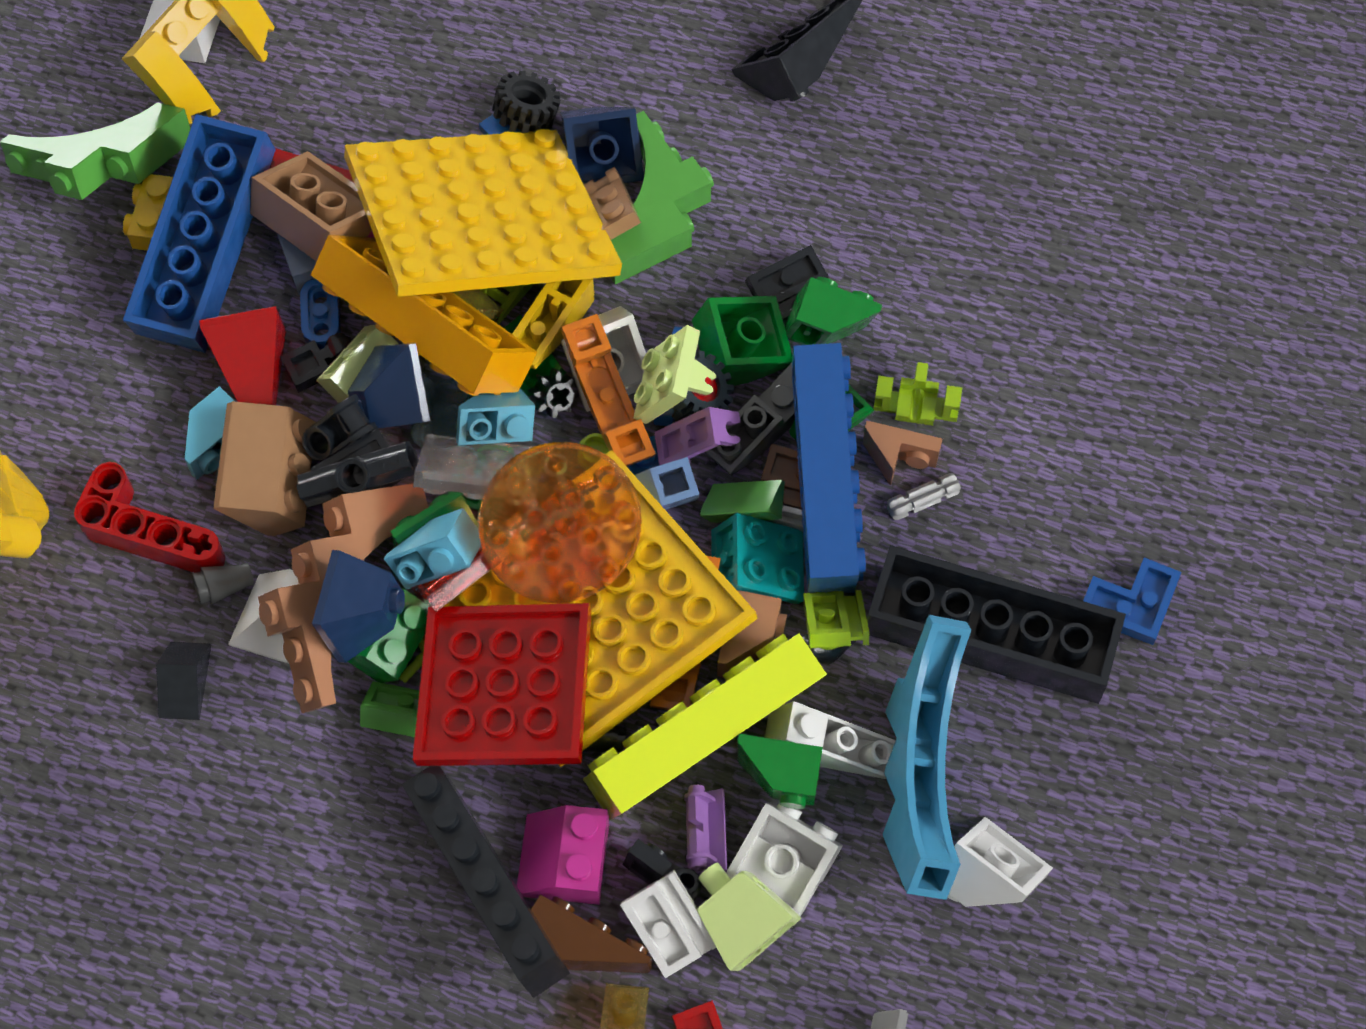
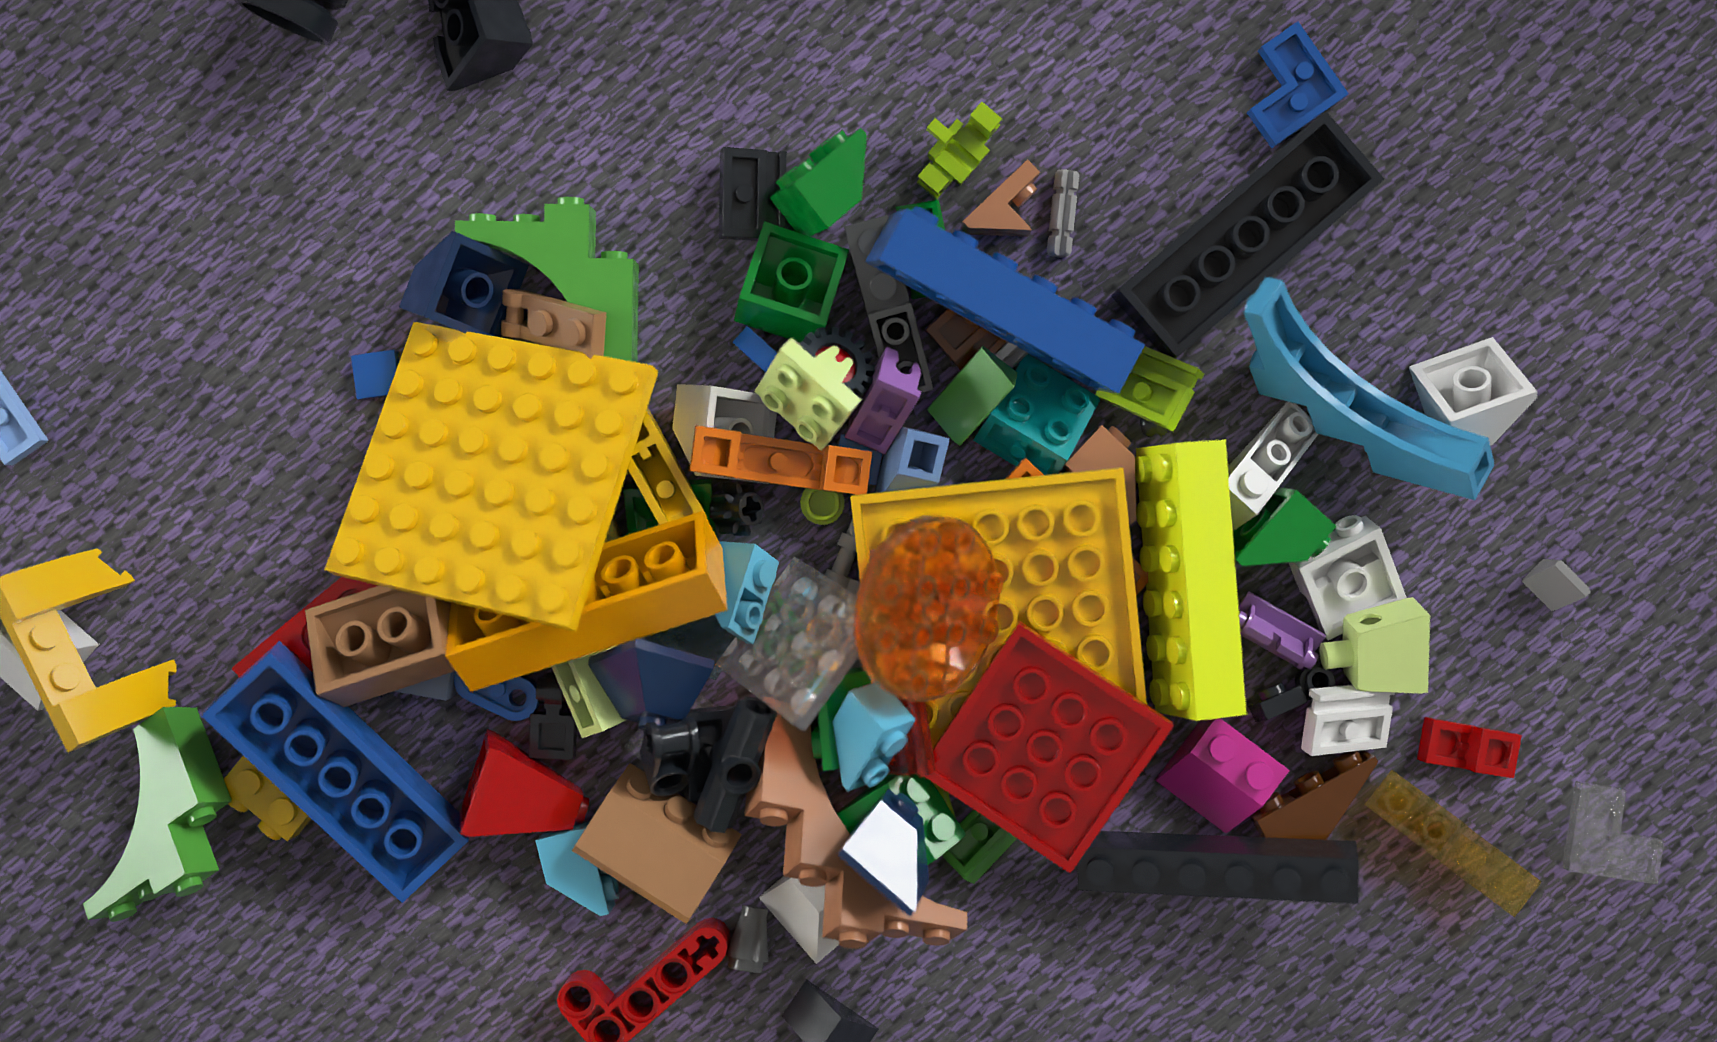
camera: 55 degrees left, 25 degrees up
(511, 101) = (355, 317): black tyre -> none

